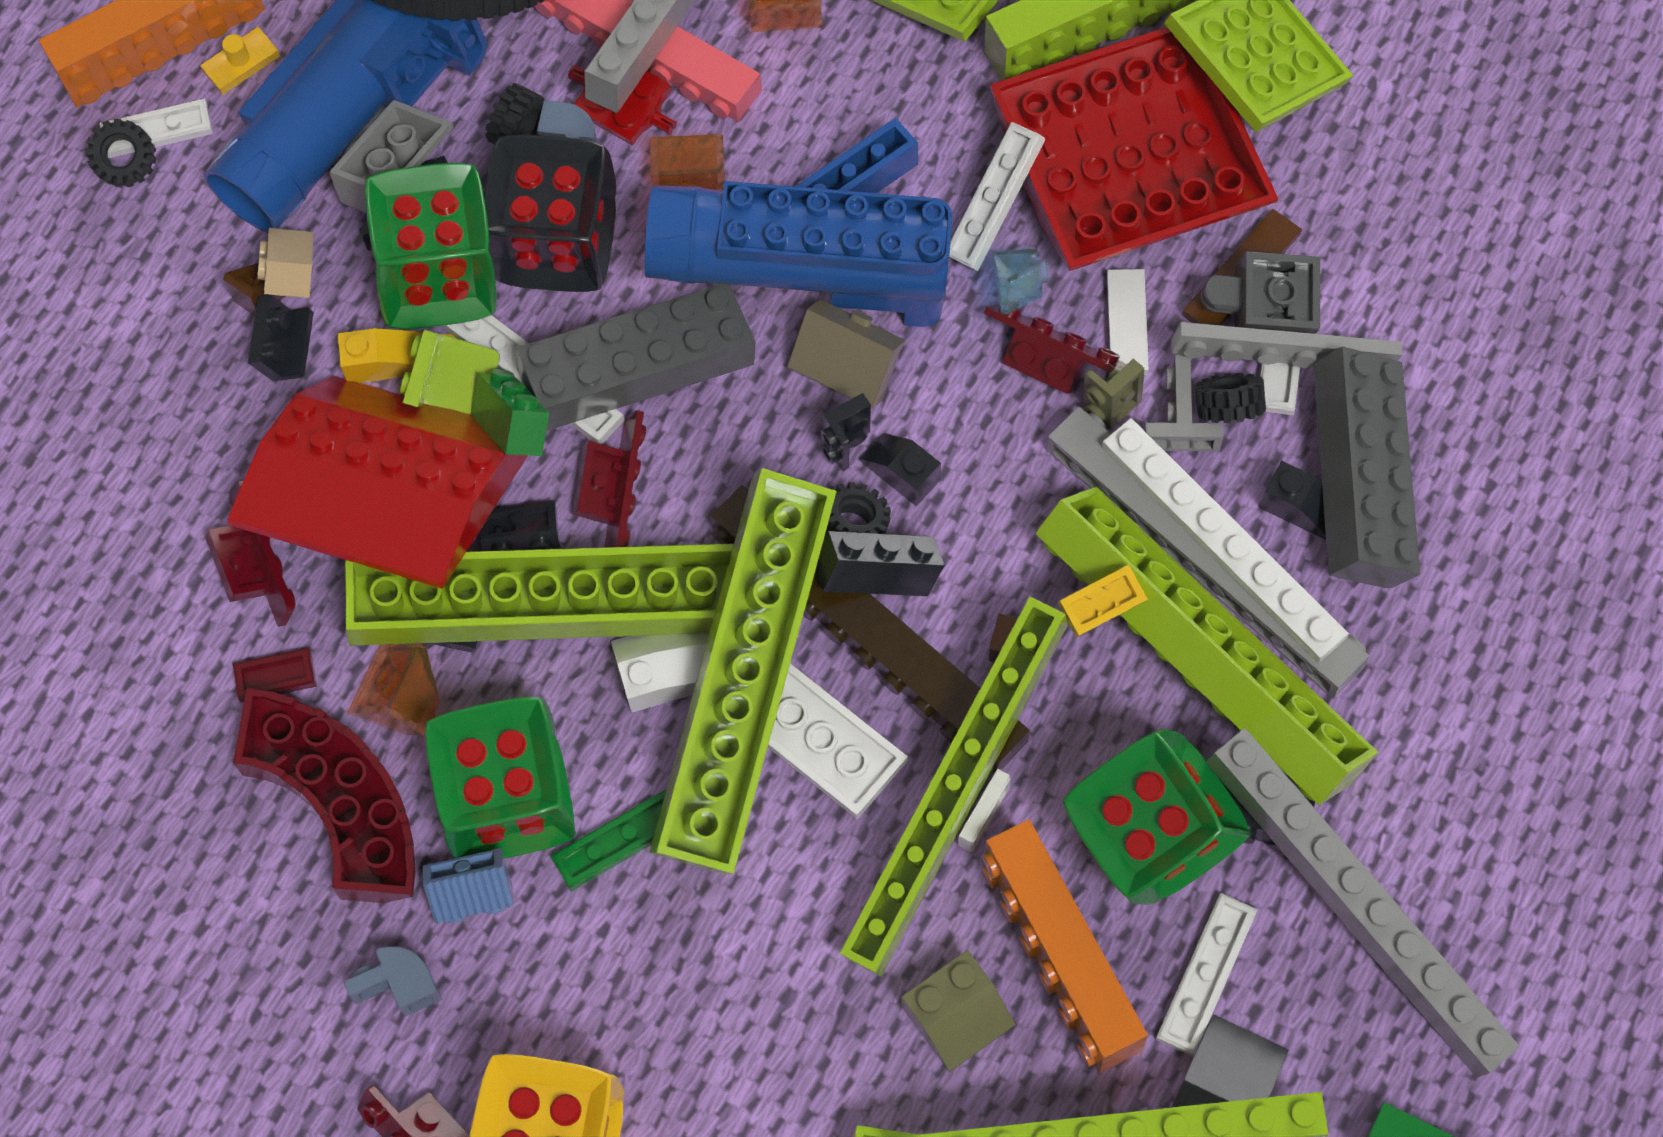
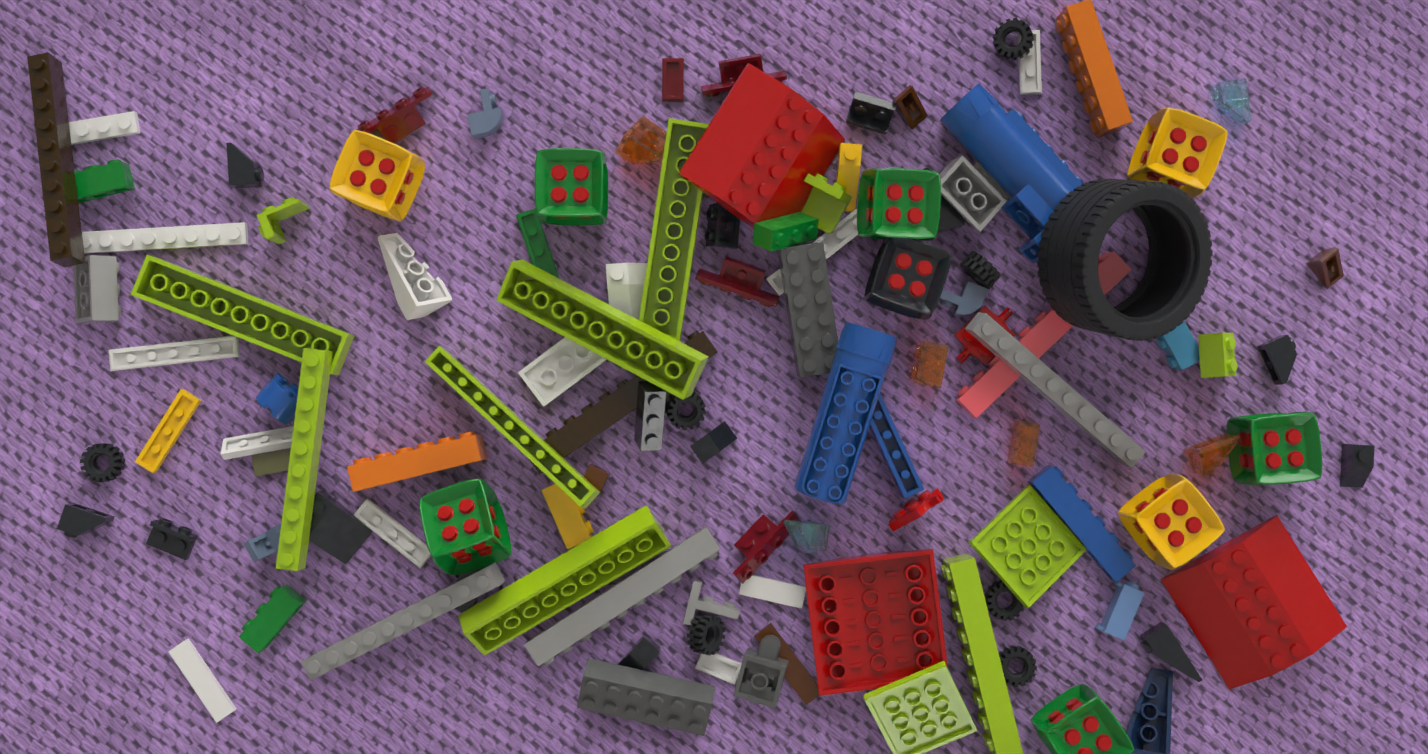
camera: 95 degrees right, 20 degrees up
(239, 59) = (1063, 117): yellow tile -> none
(286, 262) = (914, 124): tan brick -> none
(342, 783) = (595, 104): dark red brick -> none
(468, 886) = (523, 160): medium blue brick -> none
(743, 1039) = (413, 286): none -> white wedge
(845, 352) = (785, 427): dark tan container -> none
(845, 428) = (738, 419): black bracket -> none
(931, 122) = (915, 508): none -> red plate
(957, 1010) = (403, 399): olive slope -> none
(984, 811) = (503, 441): white tile -> none
(995, 195) = (863, 535): white tile -> none
(1088, 673) = (567, 516): none -> yellow brick
(1102, 601) = (590, 529): yellow tile -> none
(1117, 395) = (723, 572): olive bracket -> none
(1225, 540) = (620, 607): white plate -> none
(1270, 345) = (729, 665): light grey plate -> none

